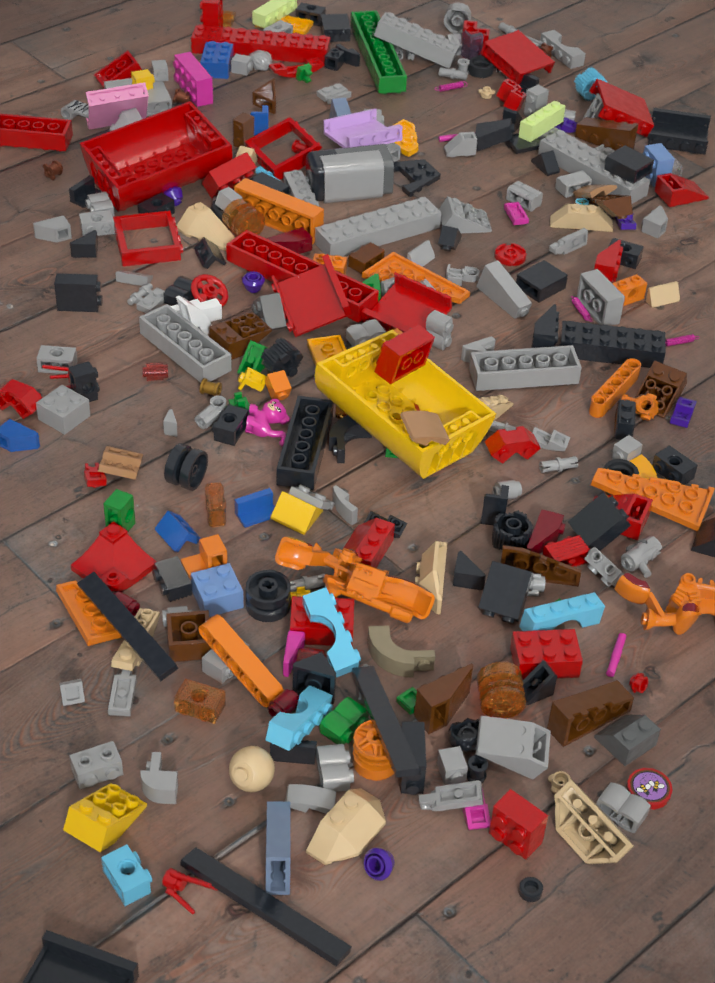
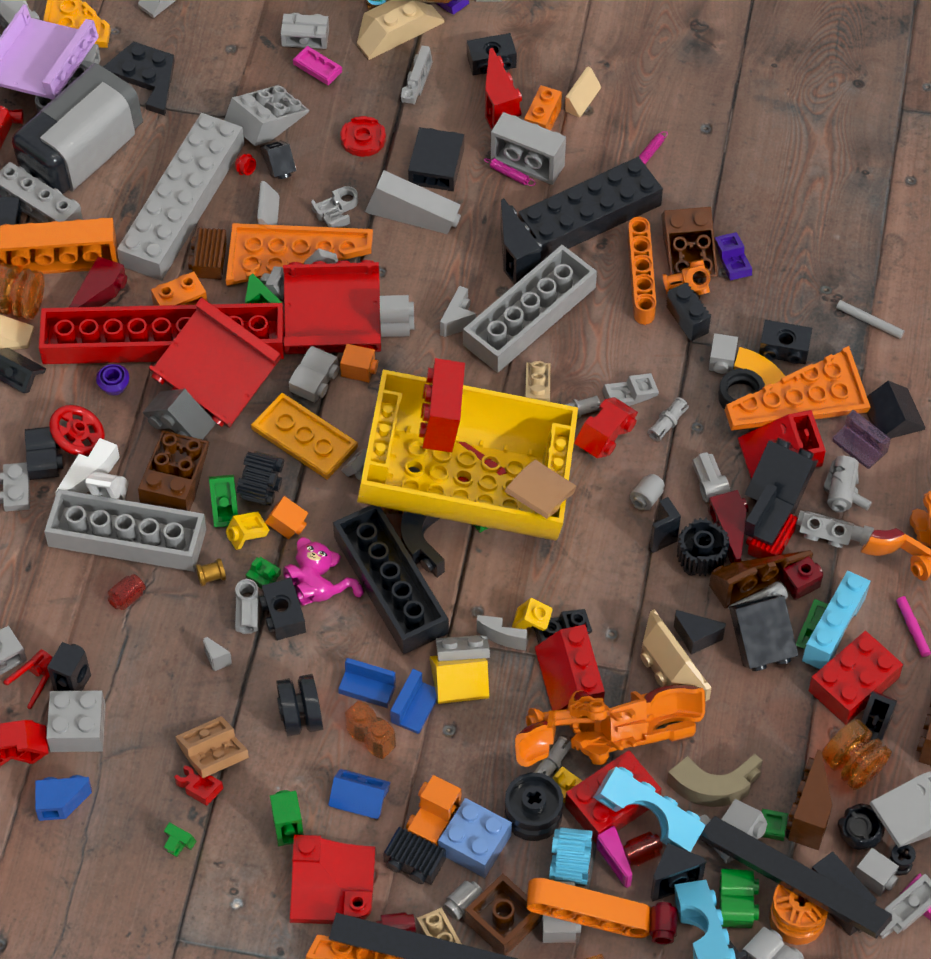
camera: 35 degrees left, 15 degrees up
(52, 492) = (178, 840): none -> green tile
(239, 482) = (367, 683): none -> blue panel
(261, 630) = (572, 856): none -> medium azure brick
(370, 505) = (532, 614): none -> yellow bracket
(392, 682) = (746, 819): none -> light grey brick
(431, 236) = (245, 164): none -> red plate
(556, 500) = (709, 475): none -> light grey piece
(564, 584) = (802, 577): none -> dark red brick
(567, 534) = (767, 516): none -> black panel
(678, 541) = (862, 440): none -> clear purple panel

